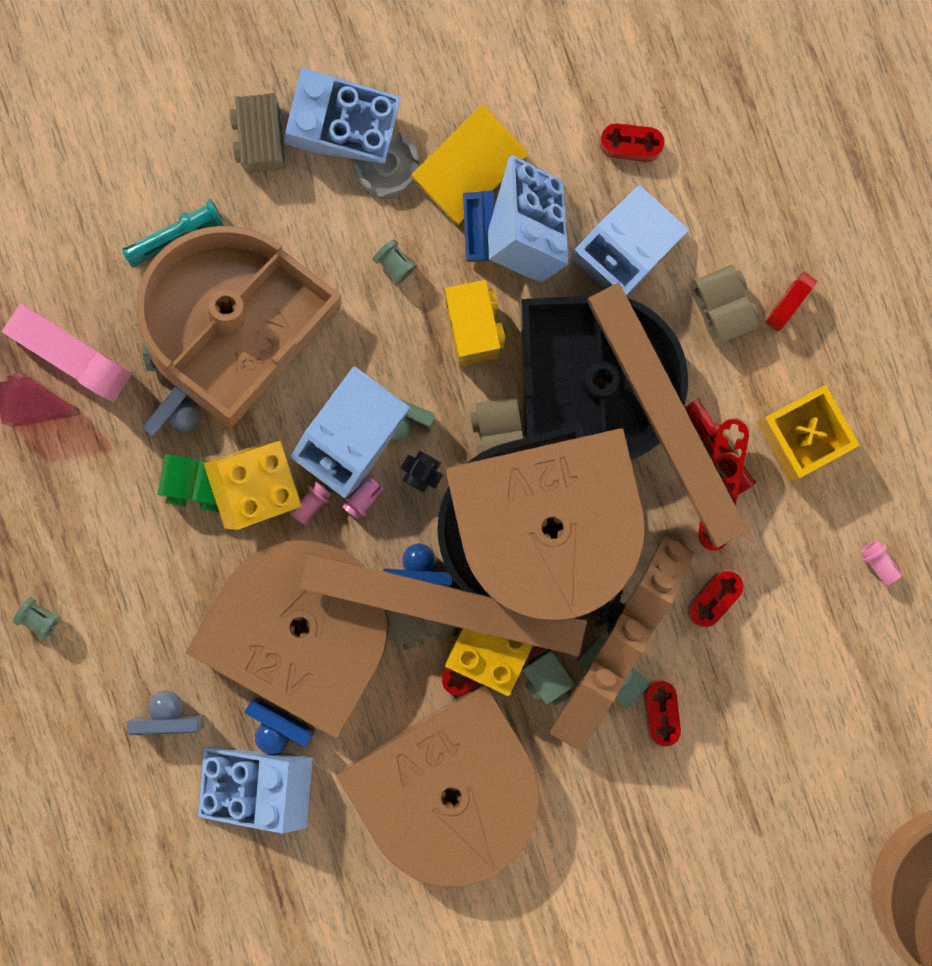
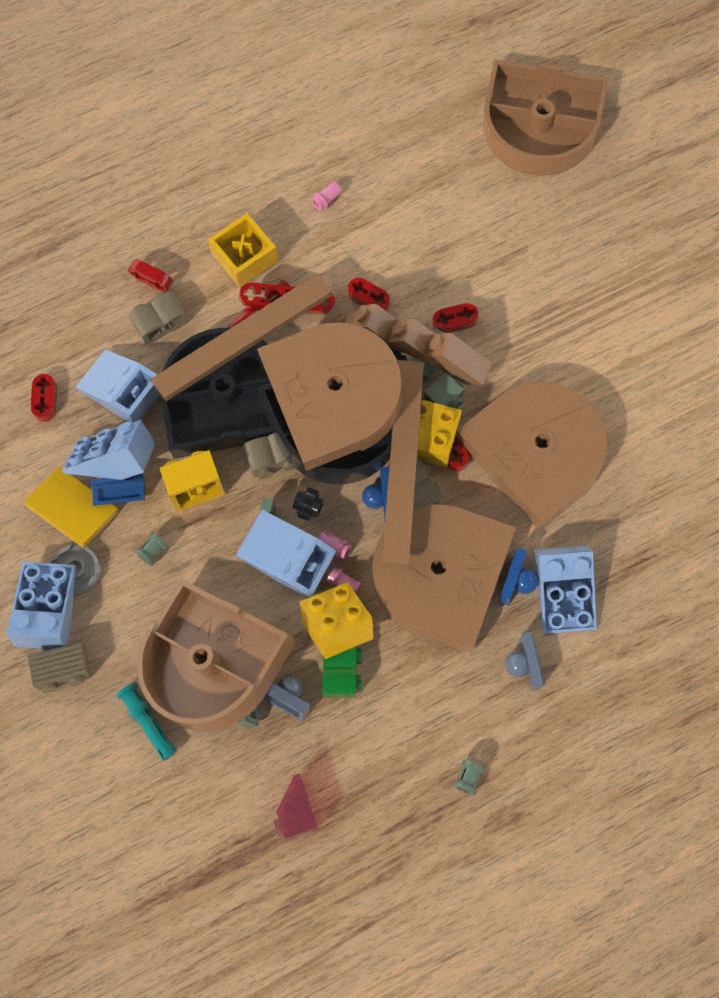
camera: 90 degrees left, 15 degrees down
(67, 353) = (252, 789): bright pink beam -> none

